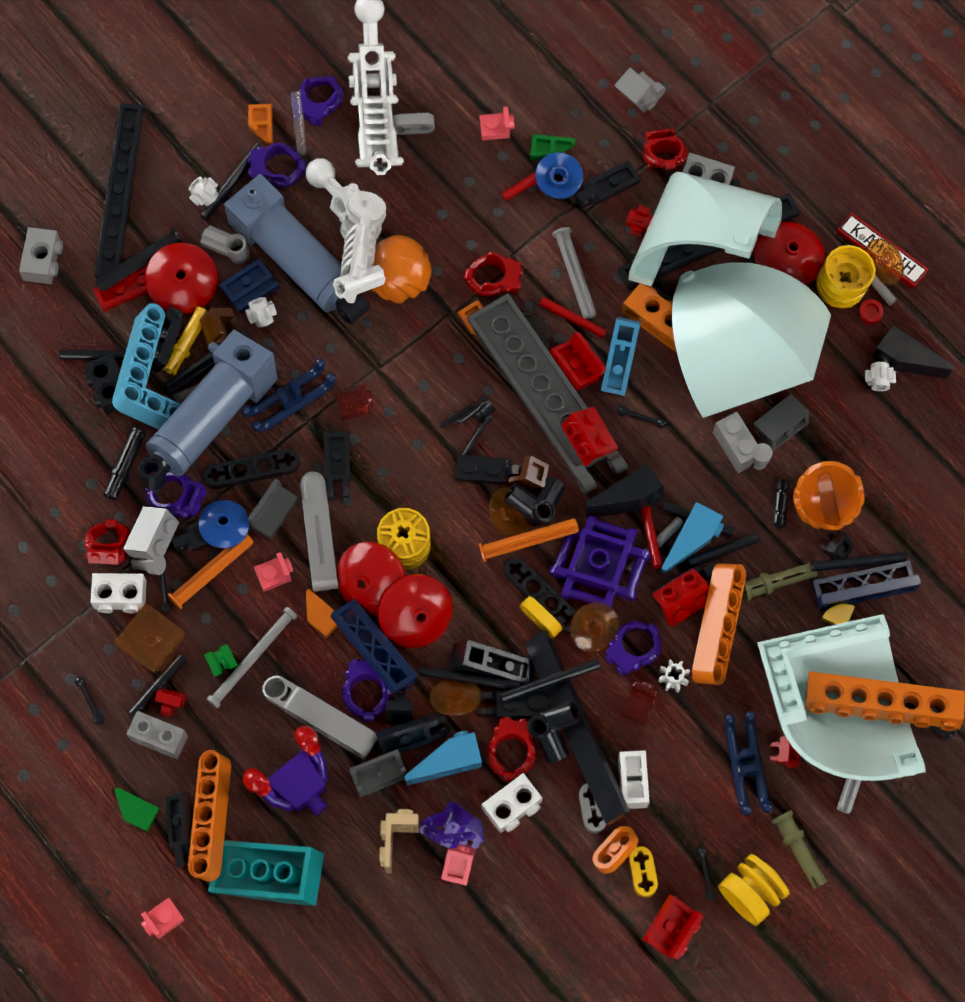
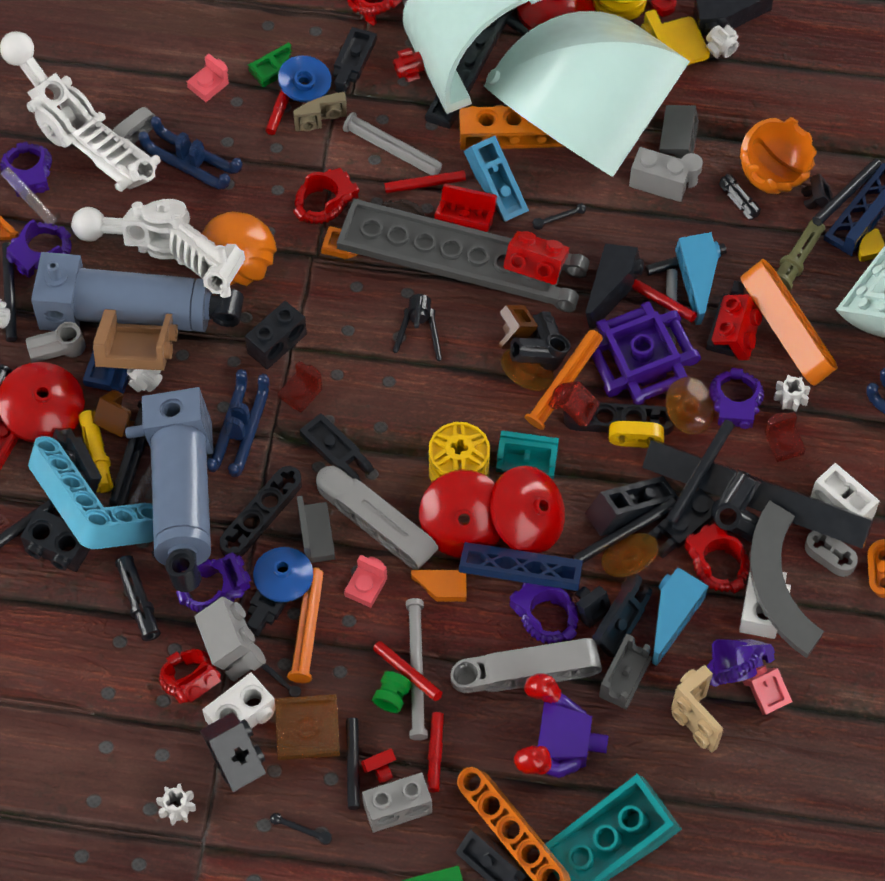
camera: 40 degrees left, 10 degrees down
(31, 626) = (178, 795): none -> white gear
(85, 617) = (235, 767): none -> brick
(213, 722) = (435, 752): none -> red piece
(242, 650) = (408, 671): none -> red bar
(267, 285) = (133, 344): none -> medium nougat panel
(369, 352) = (276, 335): none -> black brick
(431, 172) = (189, 156): none -> dark blue piece
(455, 572) = (527, 450): none -> teal hinge
(485, 469) = (470, 355): black hinge -> none
(516, 561) = (575, 401): none -> clear red bracket
(522, 793) = (770, 583): none -> dark grey tile
(540, 206) = (327, 107): none -> dark tan slope
(723, 550) = (730, 268): black bar -> none
(847, 349) = (680, 35): none -> yellow bracket

